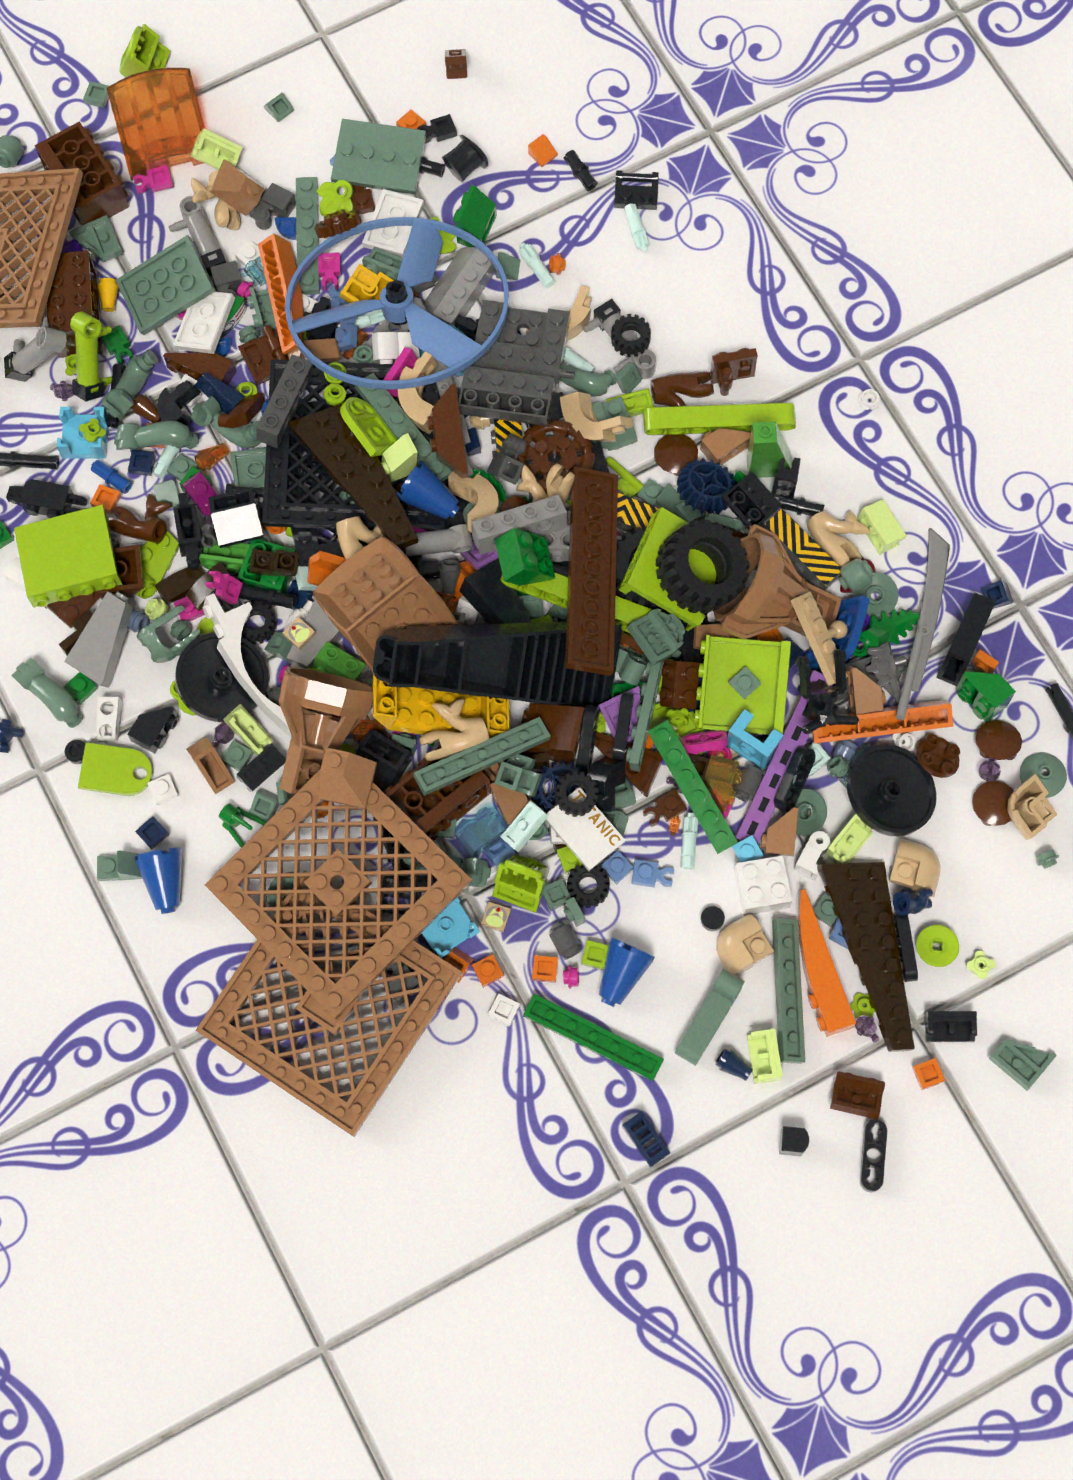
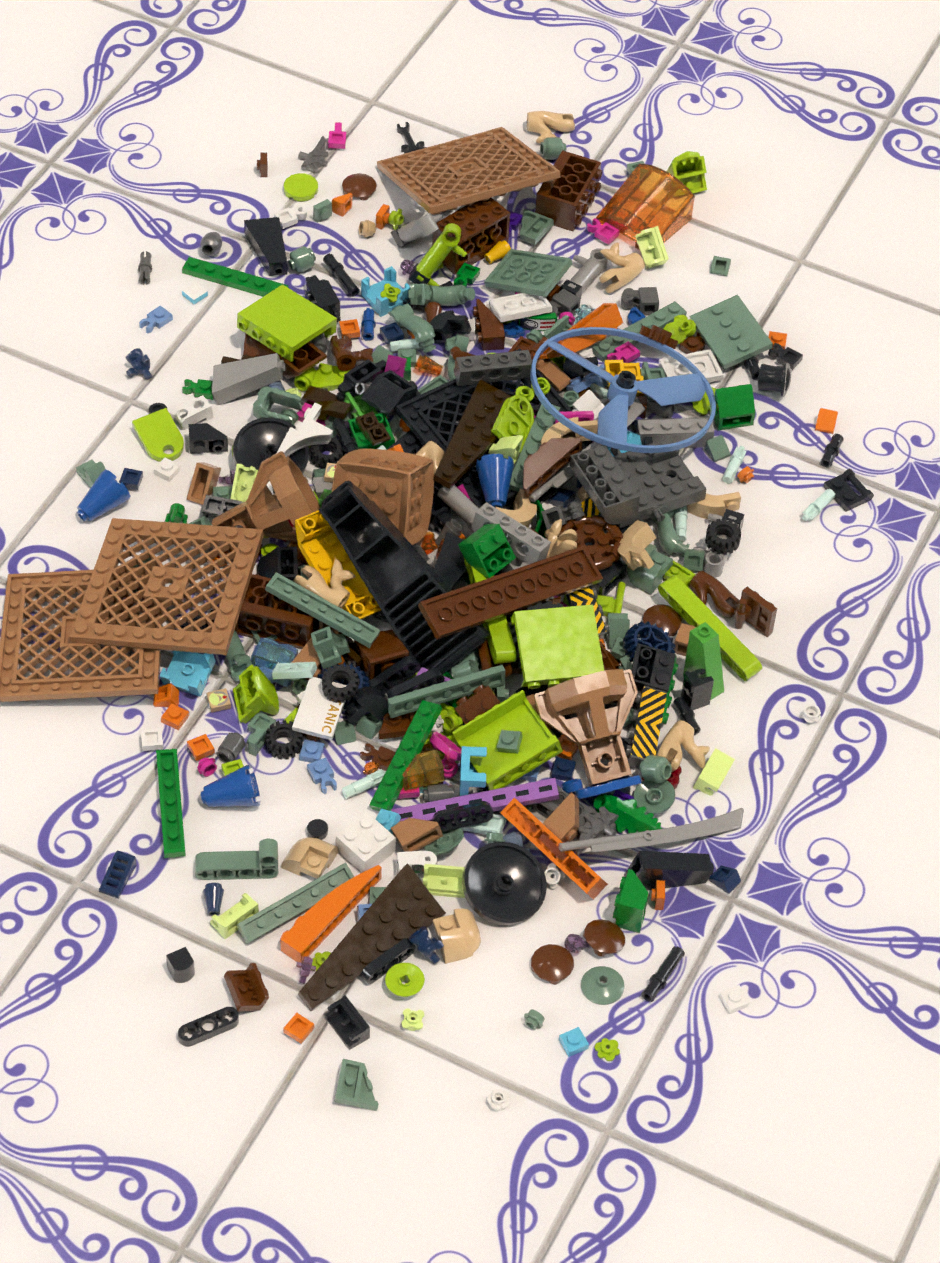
camera: 50 degrees right, 20 degrees down
(51, 693) = (185, 370): sand green piece -> none
(225, 395) = (476, 342): dark blue slope -> none
(226, 586) = (333, 413): dark pink plate -> none
(236, 188) = (635, 270): medium nougat slope -> none
(346, 778) = (242, 538): medium nougat slope -> none
(456, 63) = (846, 338): reddish brown slope -> none
(658, 635) = (496, 660): sand green slope -> none
(724, 553) = (568, 625): black tyre -> none
(818, 635) = (579, 762): tan plate -> none
(822, 697) = (531, 788): black piece -> none
(938, 756) = (558, 904): reddish brown dish -> none
(1030, 808) = (562, 979): tan brick -> none

